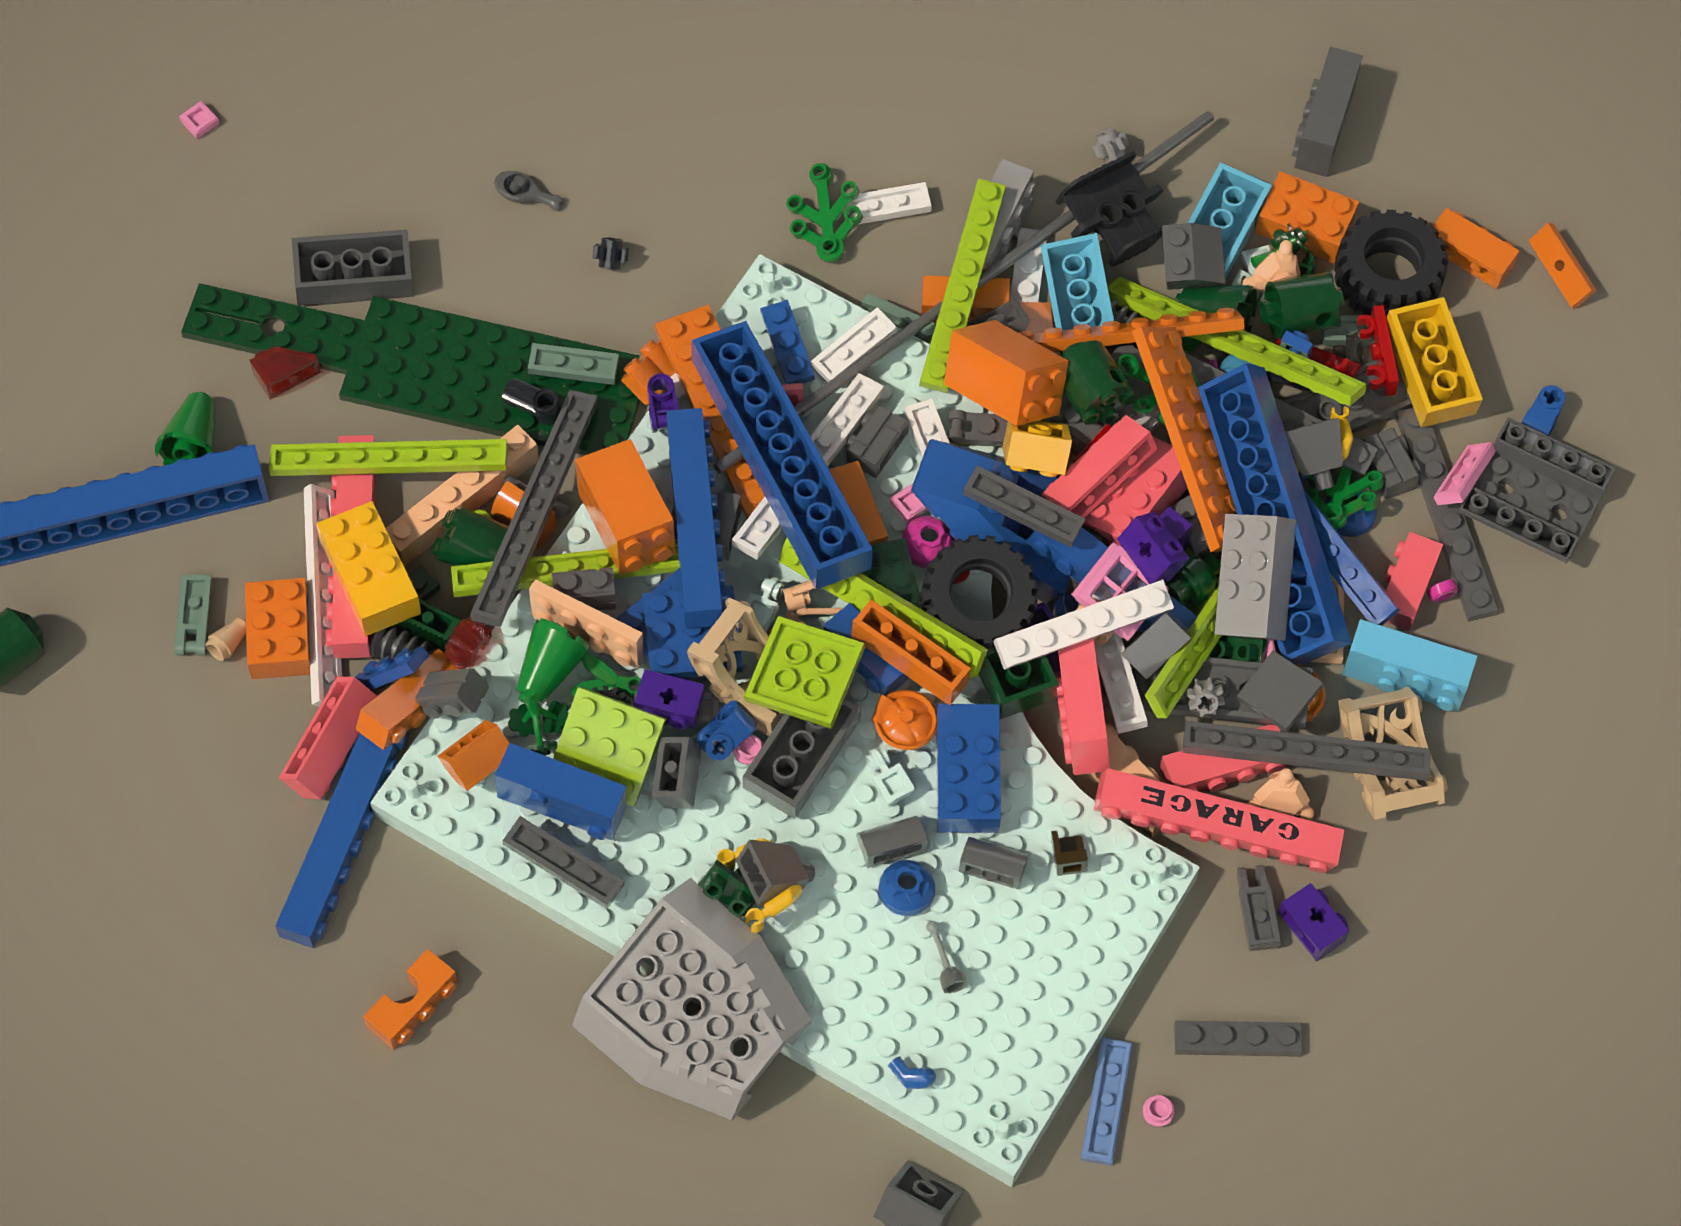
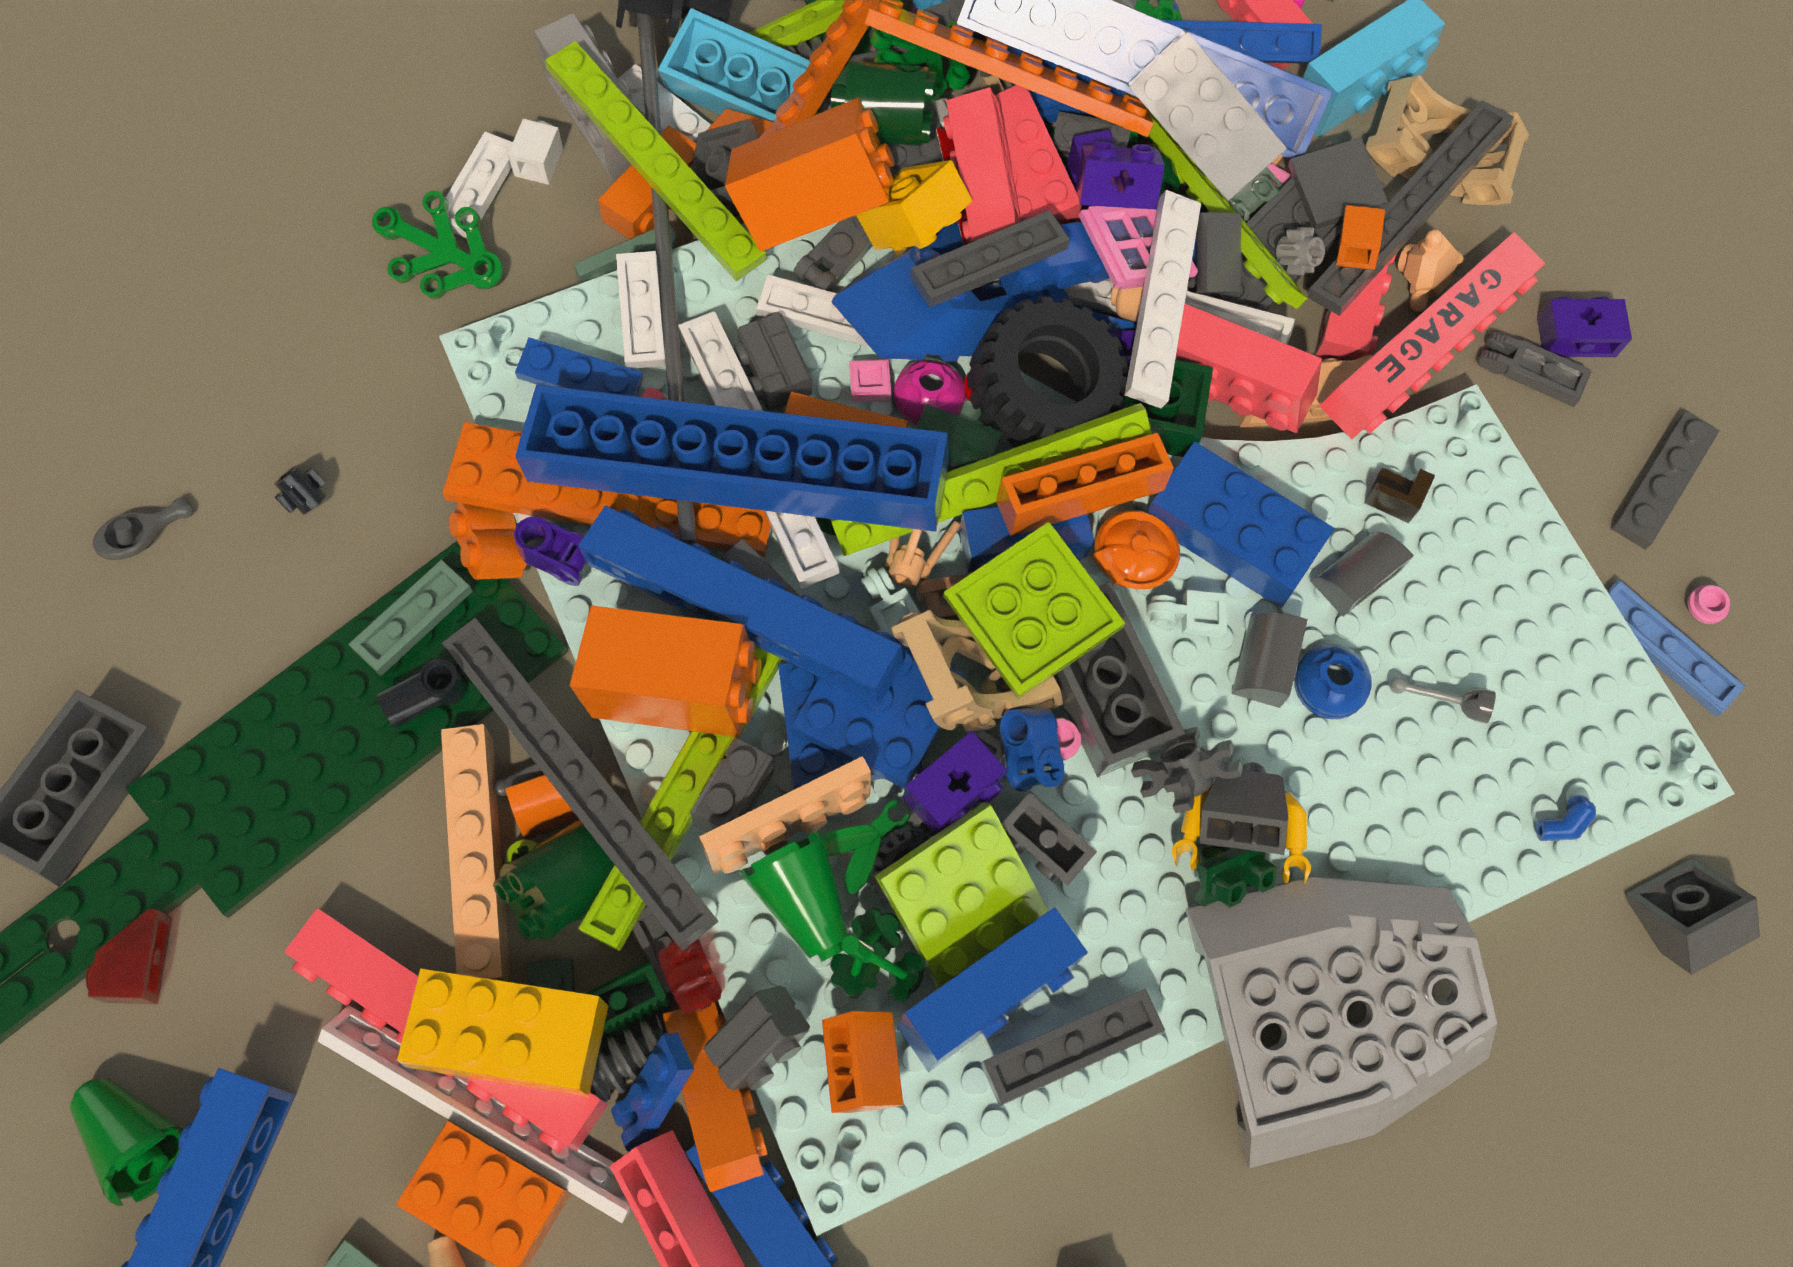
camera: 60 degrees left, 5 degrees up
(388, 457) = (364, 914): lime plate -> none
(774, 823) = (1187, 769): none -> dark grey pin
(936, 219) = (536, 151): none -> white brick
(1242, 724) = (1360, 237): none -> orange brick

